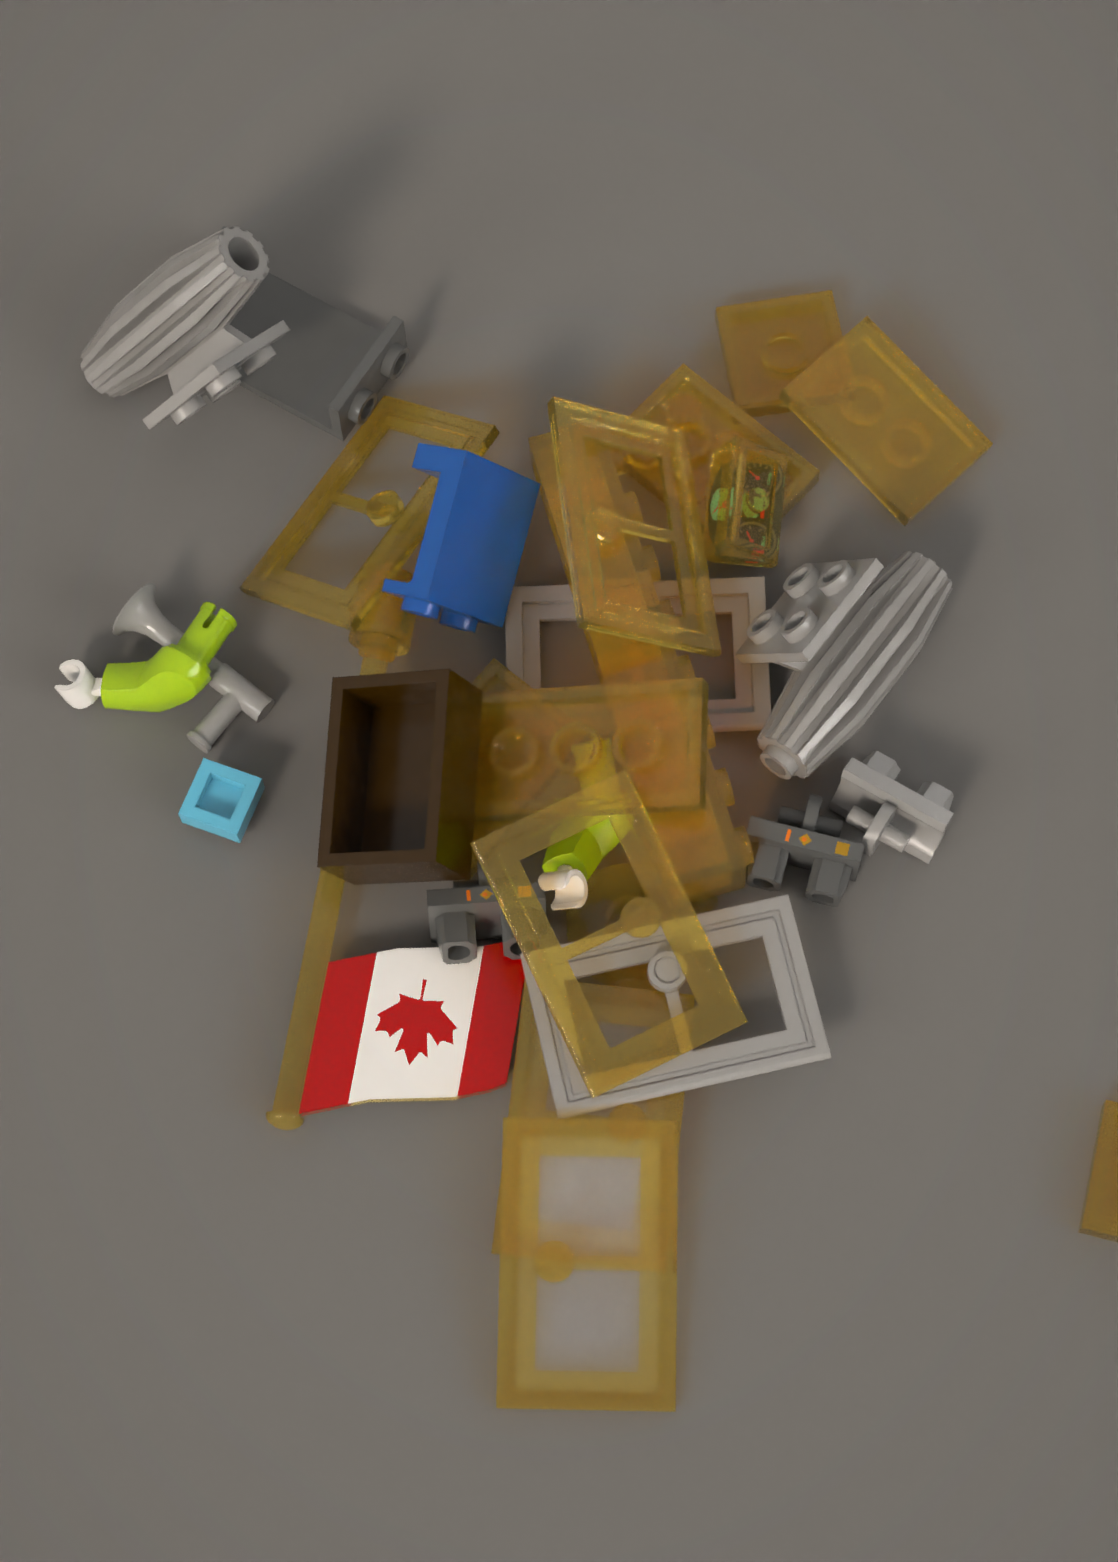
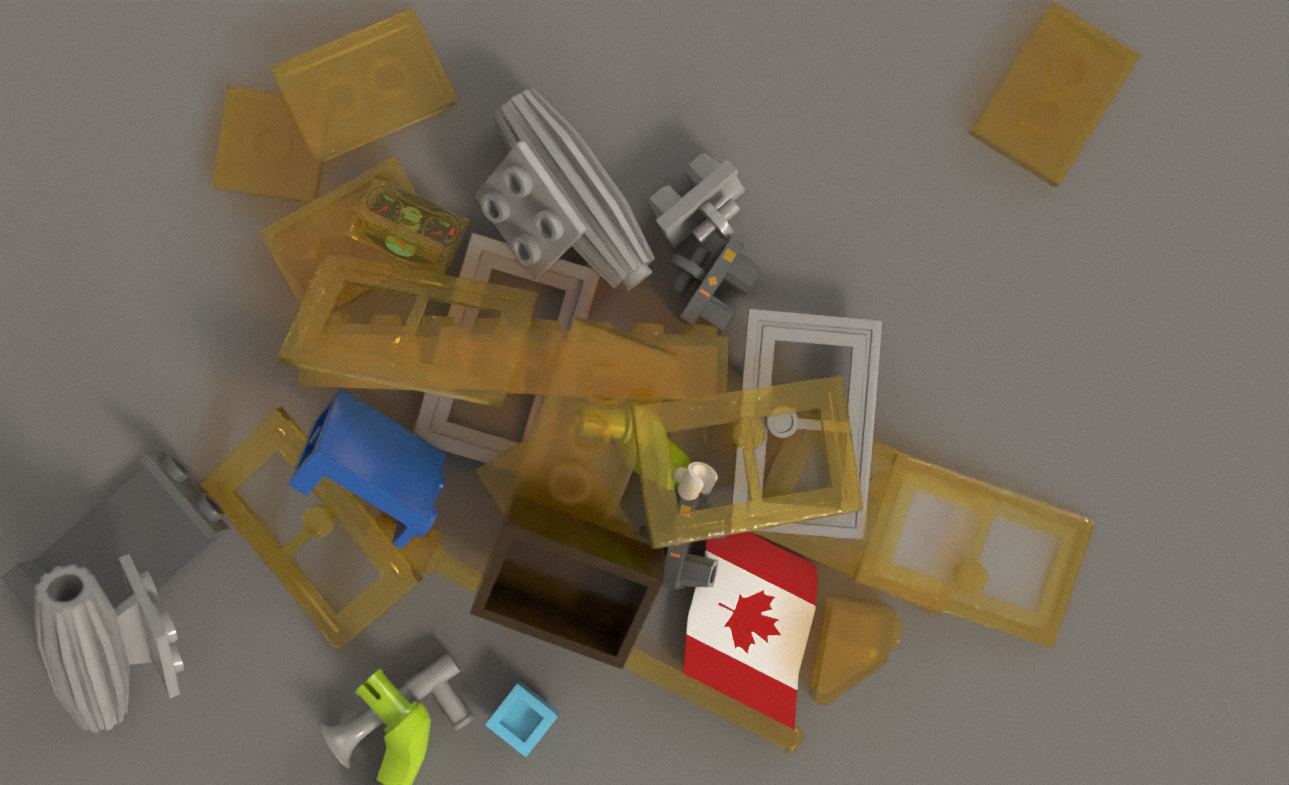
camera: 75 degrees left, 20 degrees up
(424, 1144) = (851, 644): none -> clear yellow slope

